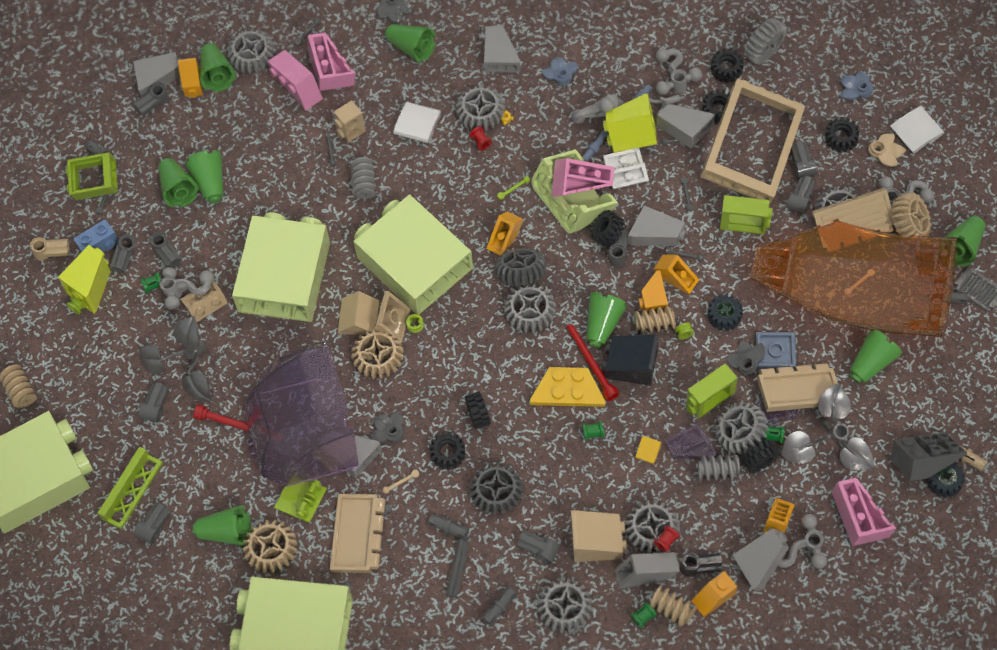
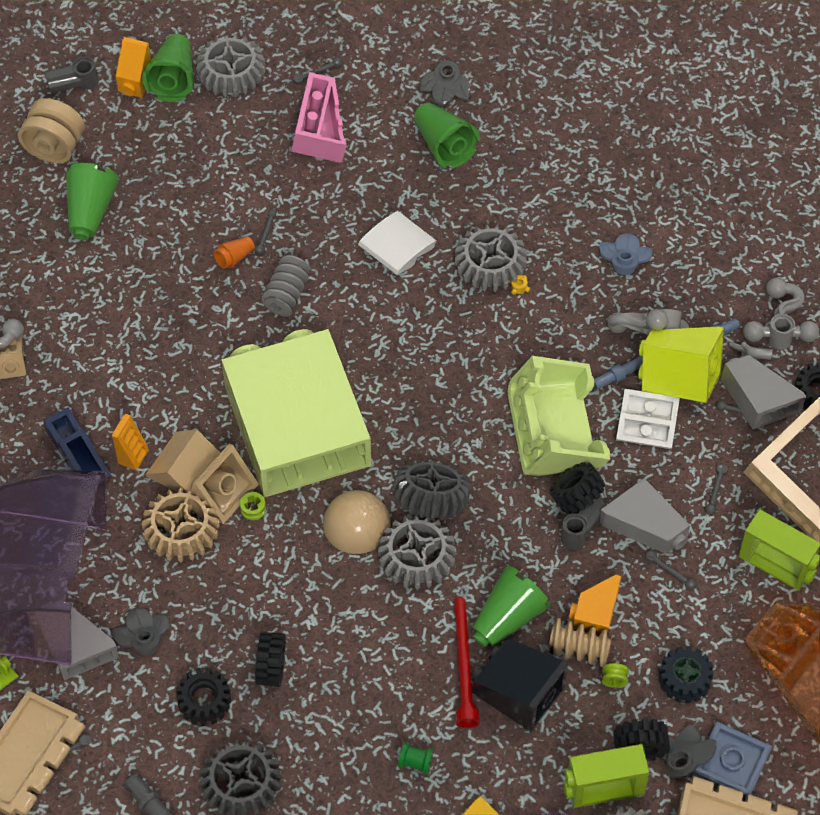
camera: 20 degrees right, 5 degrees down
(156, 69) = (94, 40): light grey slope -> none
(160, 140) = (51, 130): none -> tan wheel
(176, 184) = (41, 195): bright green cone -> none
(281, 267) = (115, 354): yellowish green brick -> none
(284, 333) = (73, 443): none -> dark blue slope
(295, 79) = (266, 124): bright pink wedge -> none
(317, 170) = (232, 252): none -> orange cone
(320, 318) = (129, 443): none -> light orange slope
(349, 121) = (304, 204): tan brick -> none
(414, 474) = (144, 709): tan hinge -> none
(480, 138) = (469, 297): red bush -> none
(482, 306) = (356, 522): none -> tan piece
(499, 51) = (553, 194): light grey slope -> none
(501, 195) = (459, 385): lime hinge -> none
(504, 232) = (436, 435): light orange slope -> none
(567, 388) = (412, 683): yellow wing -> none
(579, 176) = (573, 401): bright pink wedge -> none
(676, 273) = (644, 591): light orange slope -> none
(719, 358) = (651, 734): none -> black tyre

